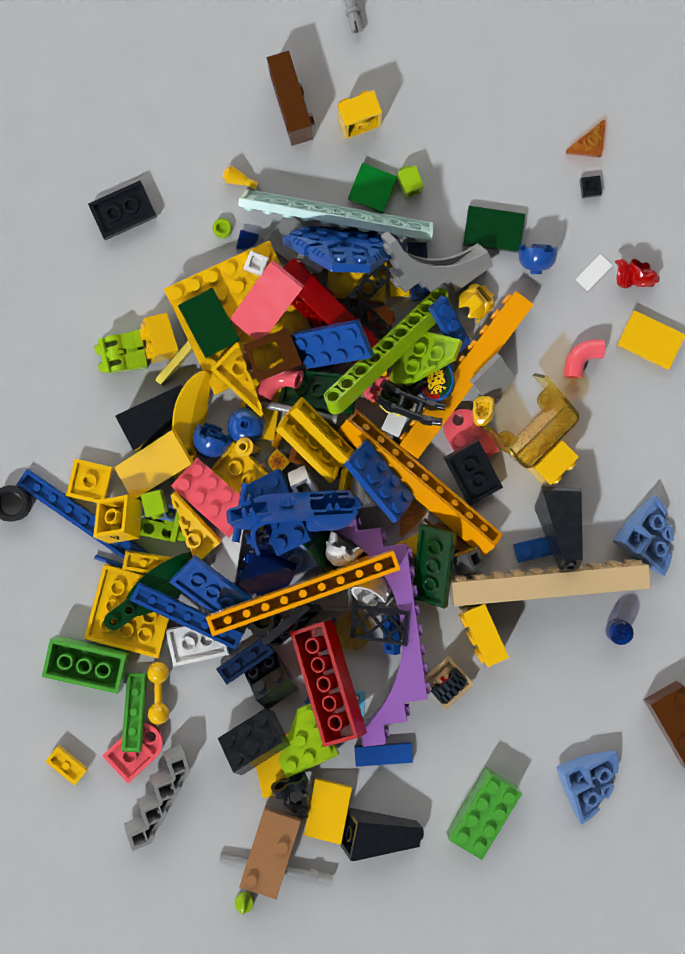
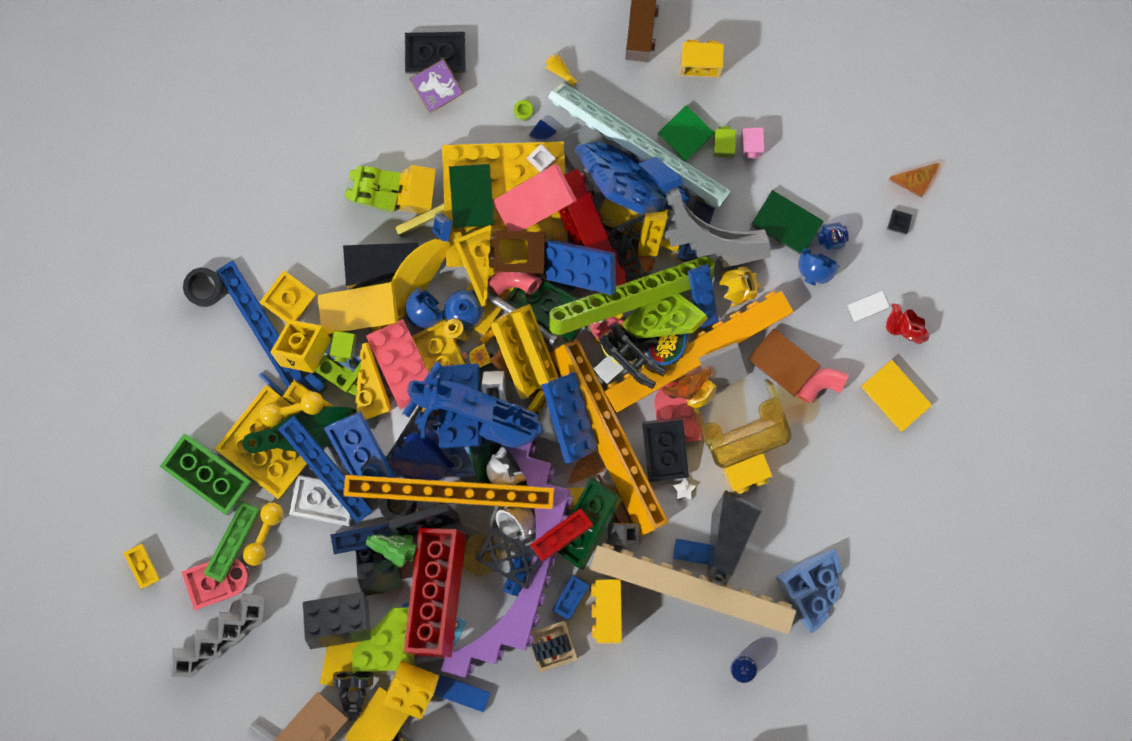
camera: 30 degrees right, 5 degrees down
(136, 238) = (436, 85): none -> tile
(146, 543) = (317, 382): none -> blue plate
(148, 565) = (310, 403): none -> yellow piece
(195, 361) = (442, 227): none -> blue plate
(276, 658) = (394, 548): none -> bright green rock
(343, 773) = (411, 690): none -> yellow brick
(369, 230) = (660, 174): none -> blue tile
(383, 287) = (652, 234): none -> yellow tile
(417, 587) = (561, 535): none -> red plate
(434, 170) = (752, 142): none -> bright pink brick
(445, 633) = (571, 597): none -> blue plate
(470, 409) = (688, 385): none -> clear orange tile
(502, 499) = (684, 489): none -> white piece
(539, 223) = (833, 236): none -> clear blue head
(543, 352) = (784, 362): none -> dark orange tile

